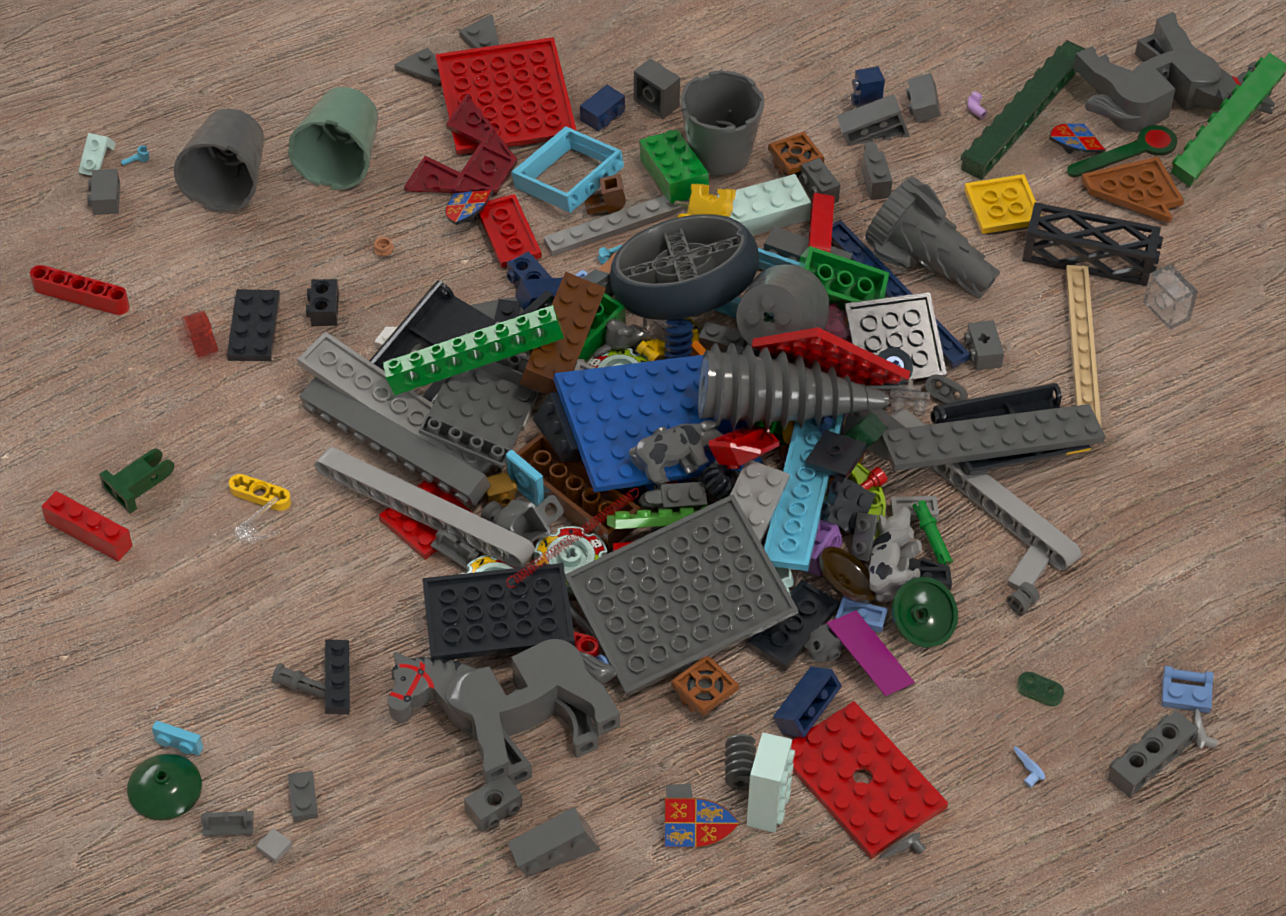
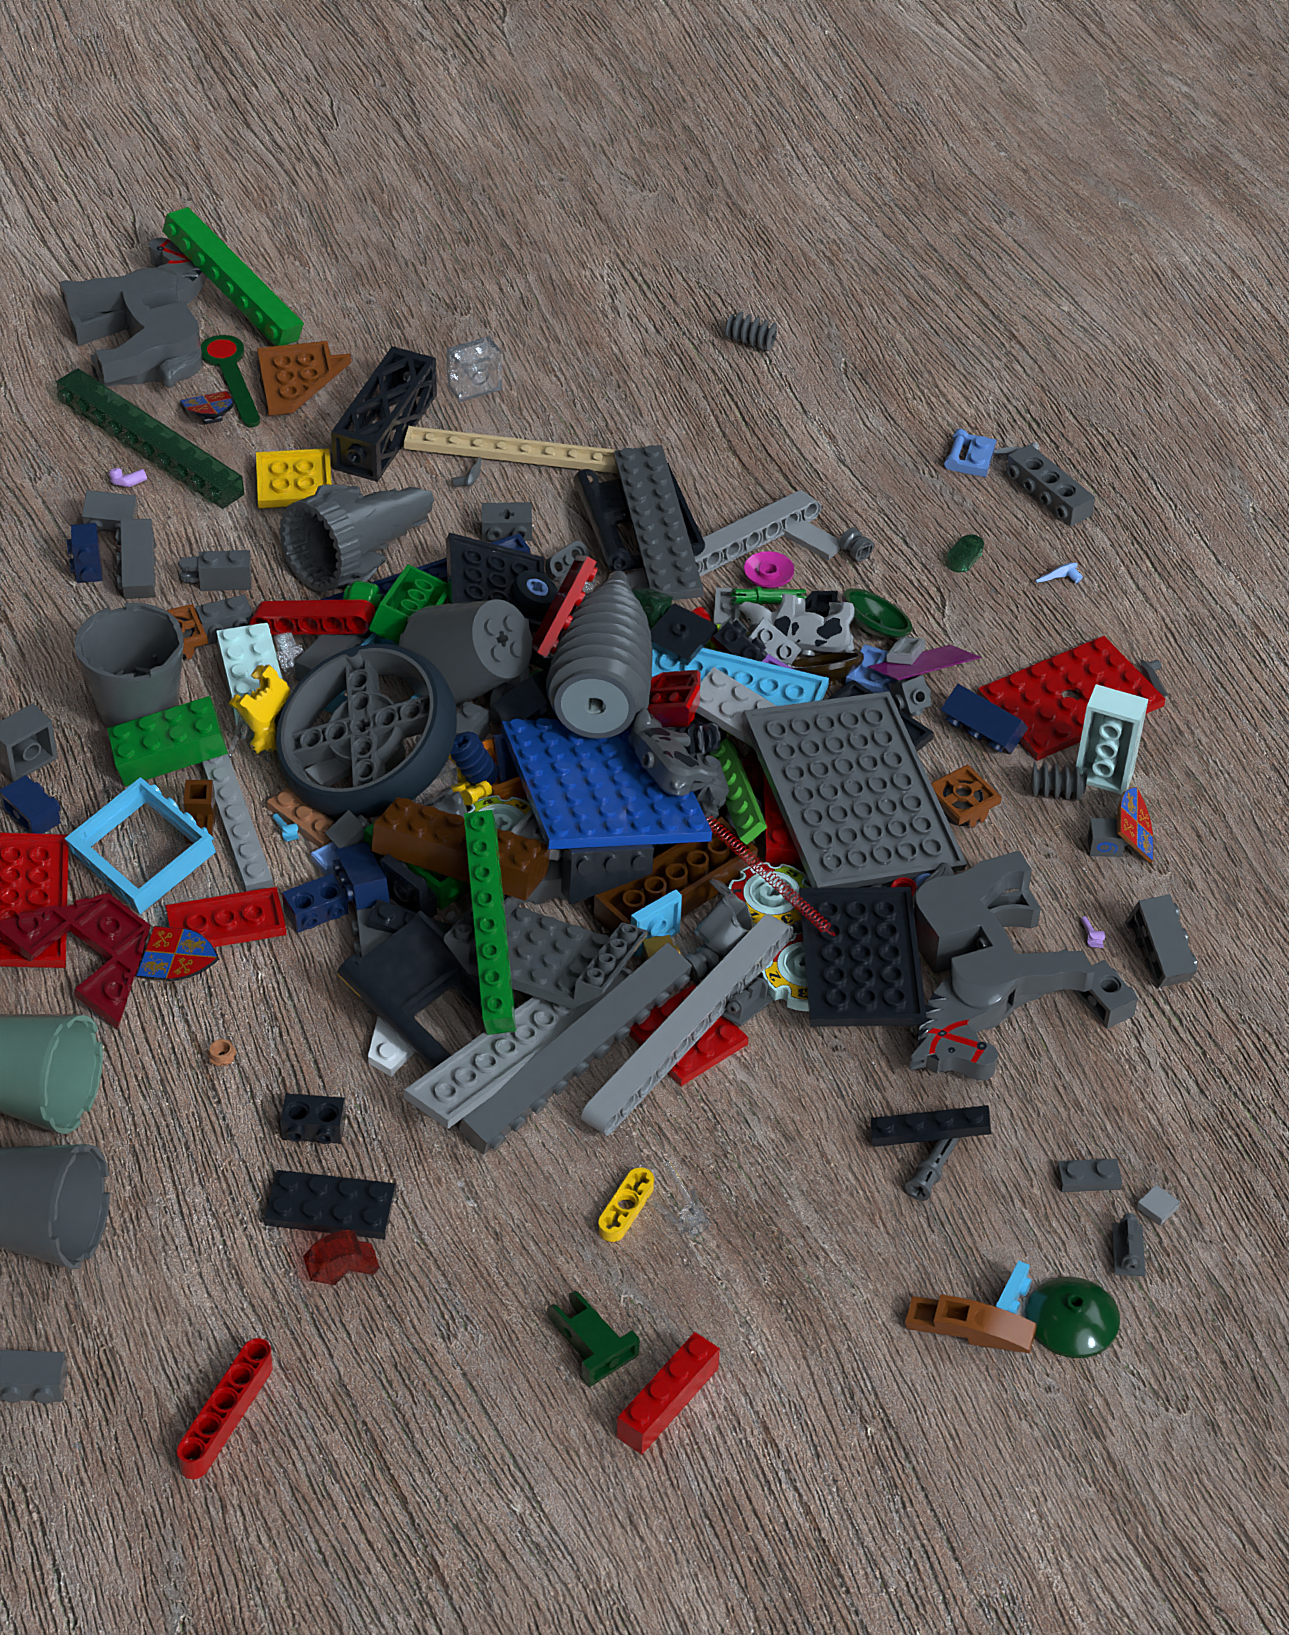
camera: 85 degrees left, 5 degrees down
(145, 710) = (973, 1320): none -> dark orange slope
(562, 796) = (1094, 938): none -> lavender hand
(791, 221) = (287, 651): none -> clear hips
(845, 247) = (364, 591): none -> green head
(885, 640) = (906, 650): none -> light grey tile
(971, 526) = (769, 569): none -> dark pink dish
(1042, 318) = (471, 477): none -> dark grey bar

